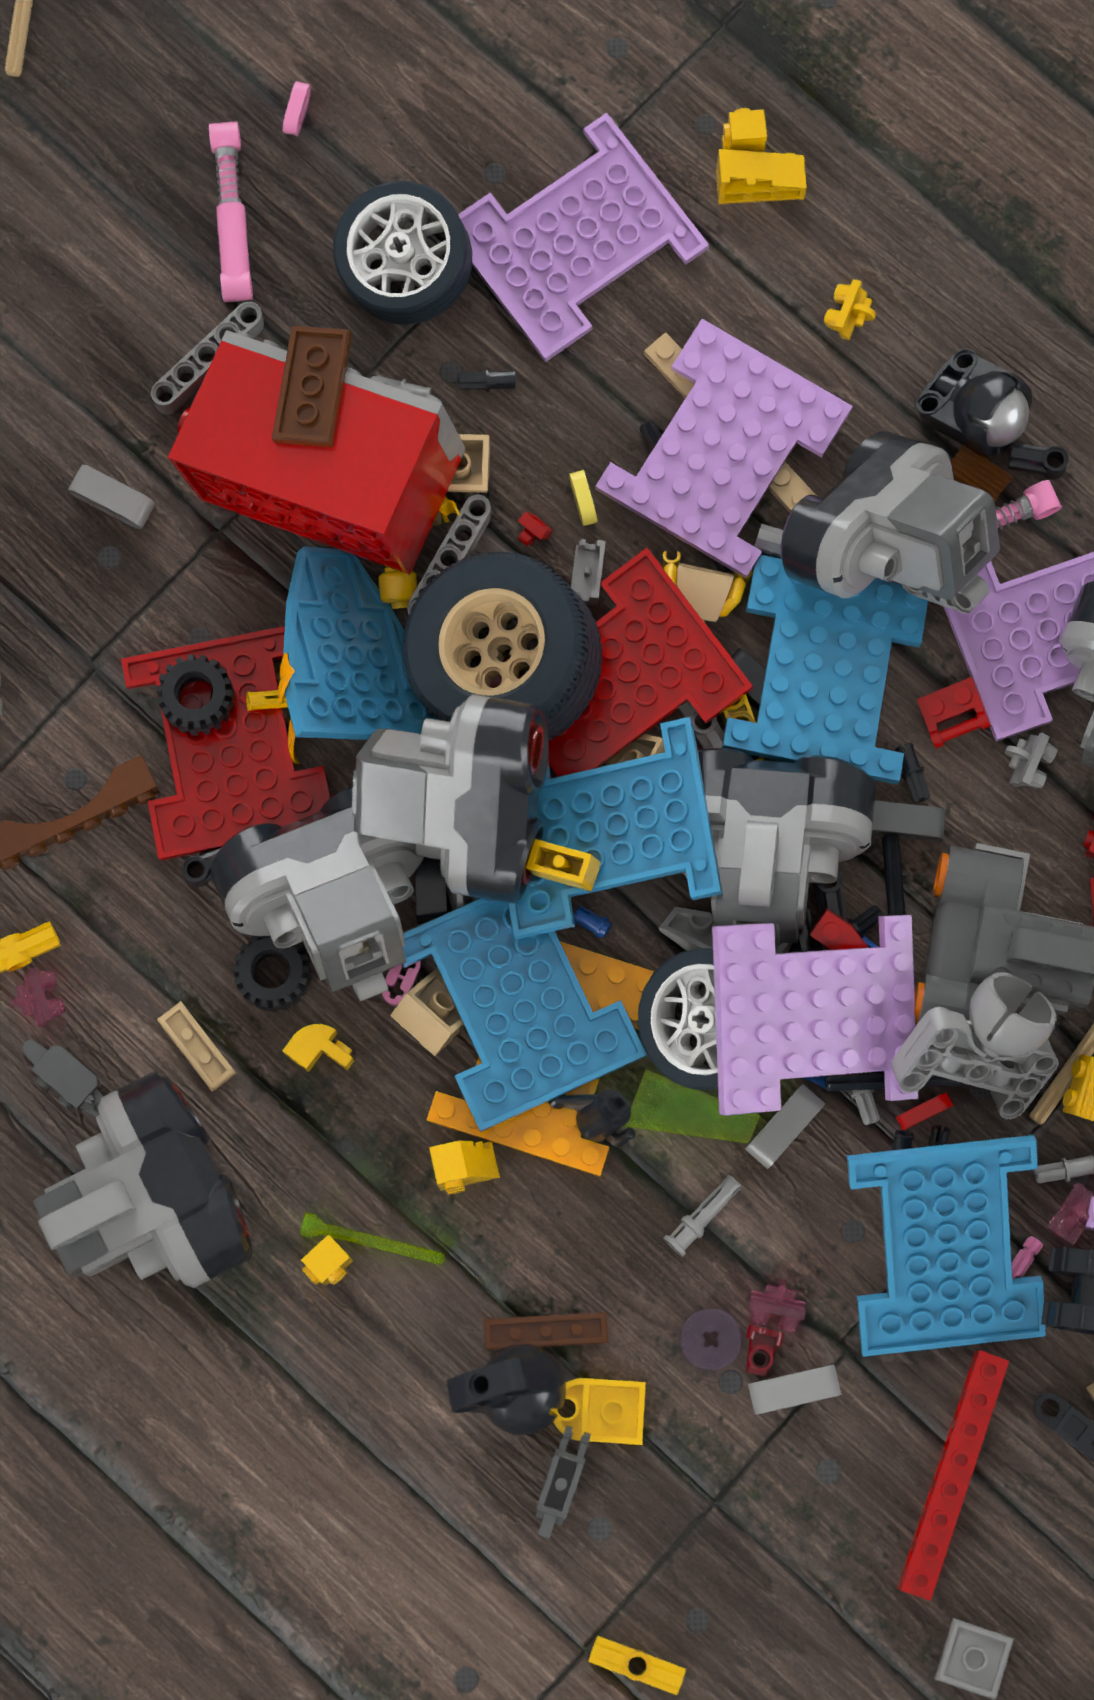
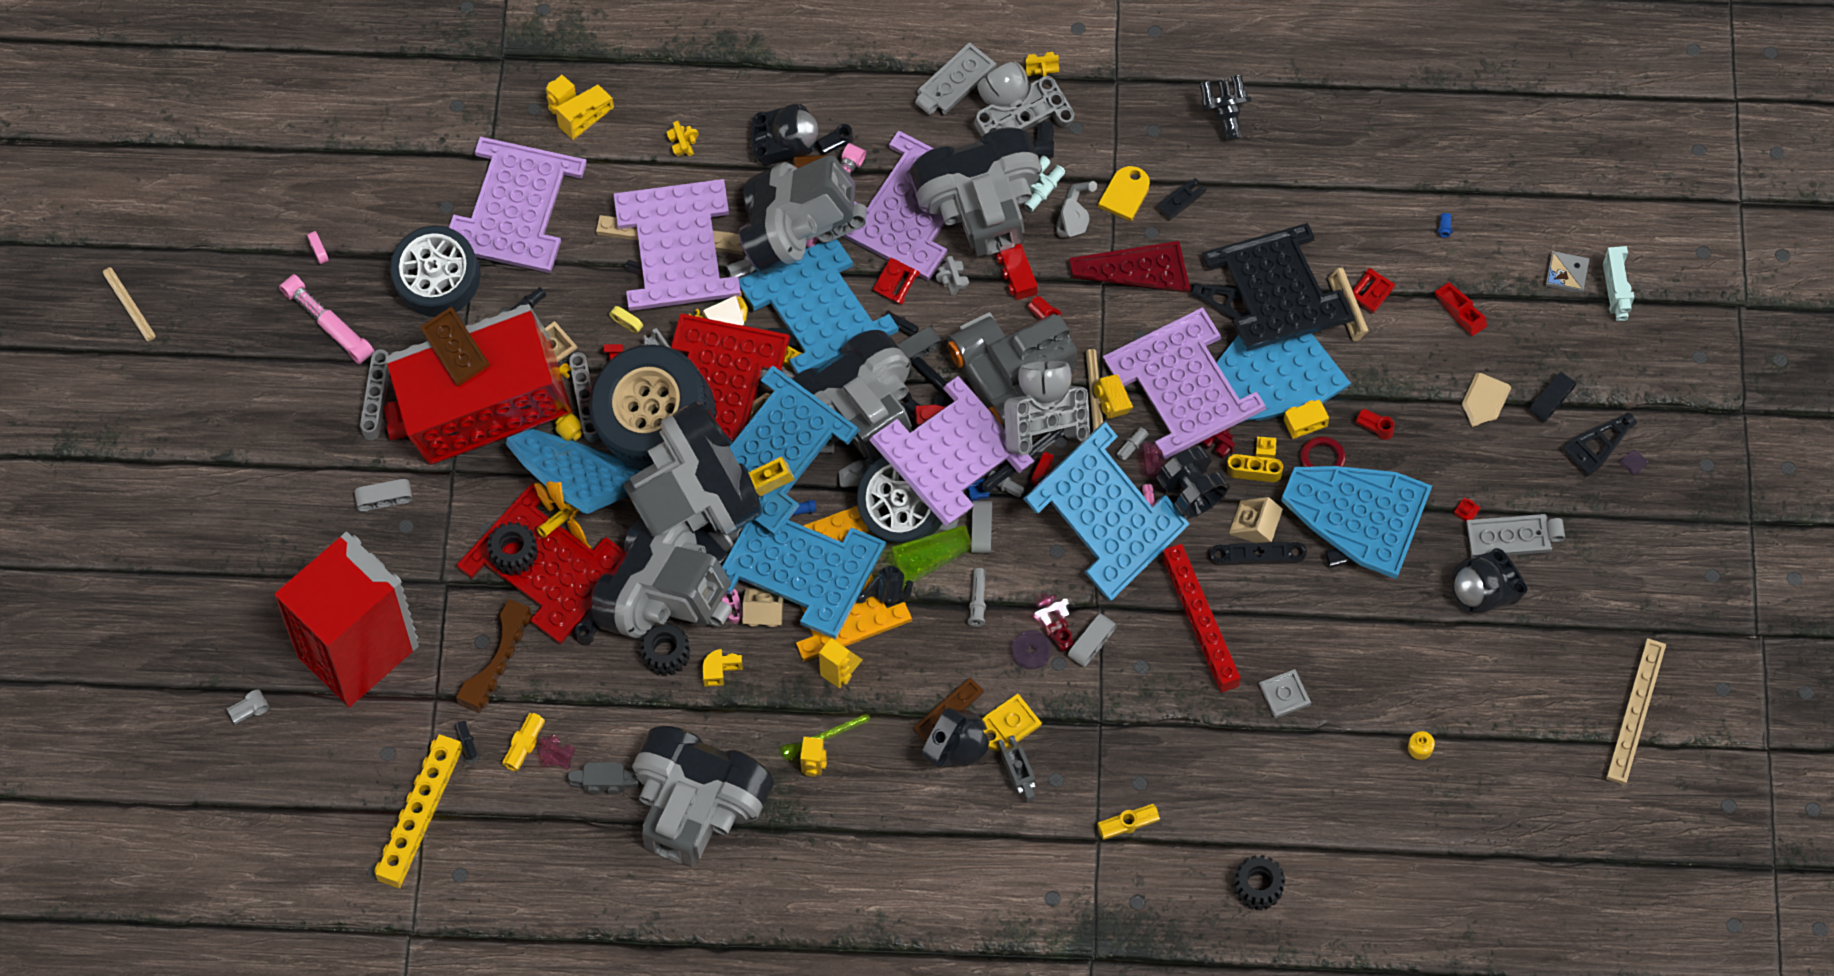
camera: 40 degrees left, 15 degrees down
(196, 1046) = (655, 715): tan tile -> none

